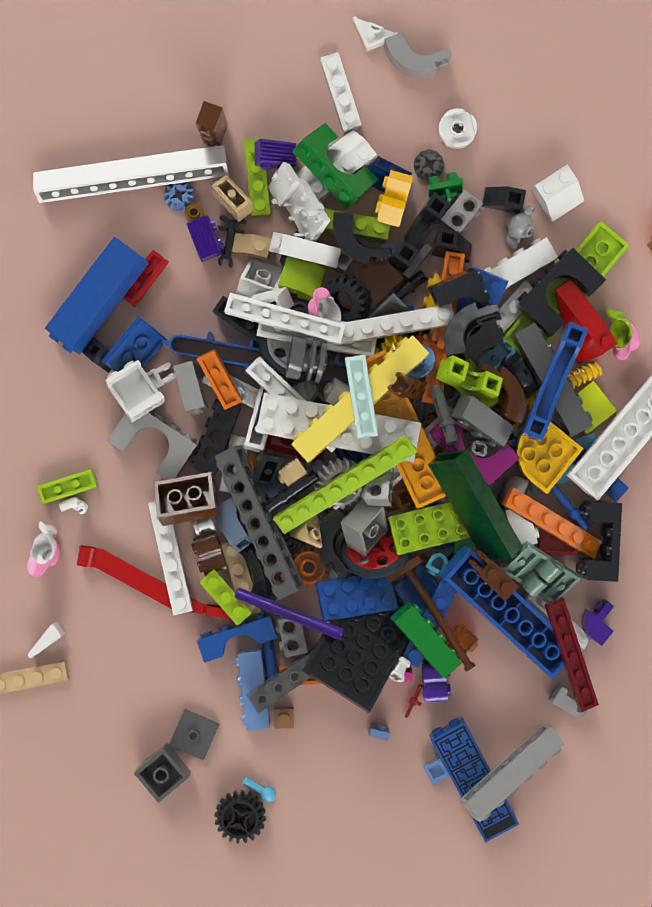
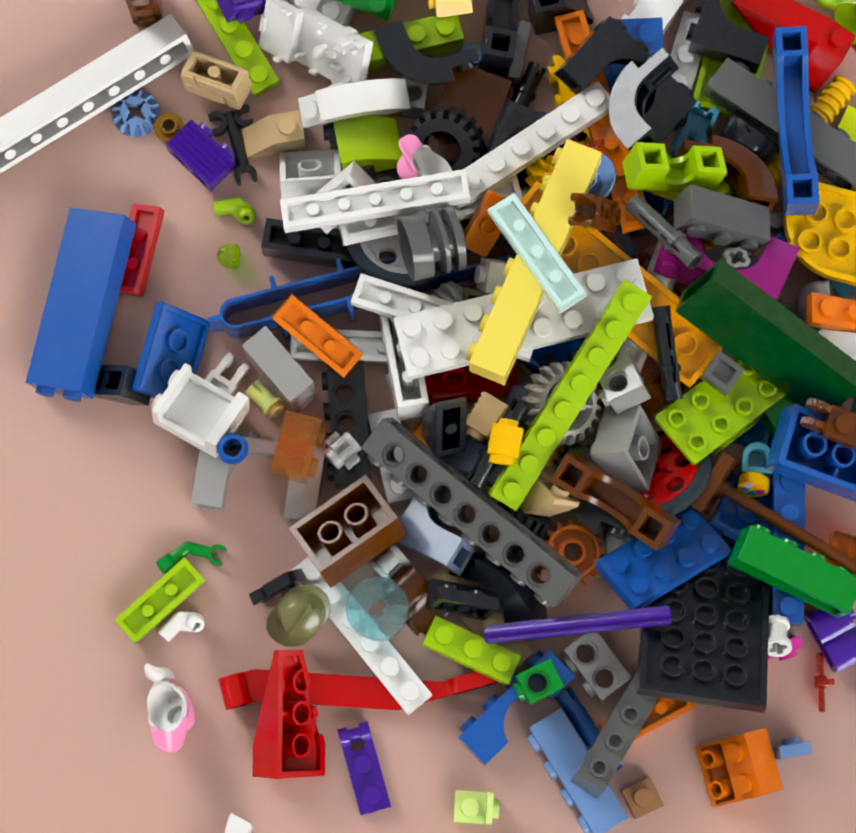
camera: 30 degrees left, 10 degrees down
(92, 464) = (171, 559): none -> green arm
(104, 593) = (287, 731): none -> red wedge
(136, 424) = (230, 442): none -> blue cone
(138, 511) = (279, 585): none -> black plate
(138, 632) = (364, 769): none -> dark purple plate
(140, 531) = (298, 615): none -> olive piece
(176, 399) = (265, 399): none -> yellowish green pin
(178, 439) = (297, 447): none -> clear orange brick
(190, 680) = (475, 807): none -> yellowish green bracket
(191, 558) = (361, 600): none -> clear light blue plate
(194, 305) = (229, 255): none -> clear neon green hinge
(203, 452) = (342, 450): none -> light grey gear
(212, 279) = (237, 208): none -> lime arm
(231, 565) = (460, 599): none -> black bracket
(260, 628) = (547, 672): none -> green brick
(293, 495) = (505, 442): none -> yellow brick
(337, 364) = (481, 230): none -> orange plate
(344, 728) = (739, 768): none -> orange slope
(352, 573) = (635, 511): none -> reddish brown arch
(409, 493) = (666, 354): none -> black pin
(428, 576) = (753, 484): none -> yellow tile
(439, 510) = (722, 373): none -> dark grey plate

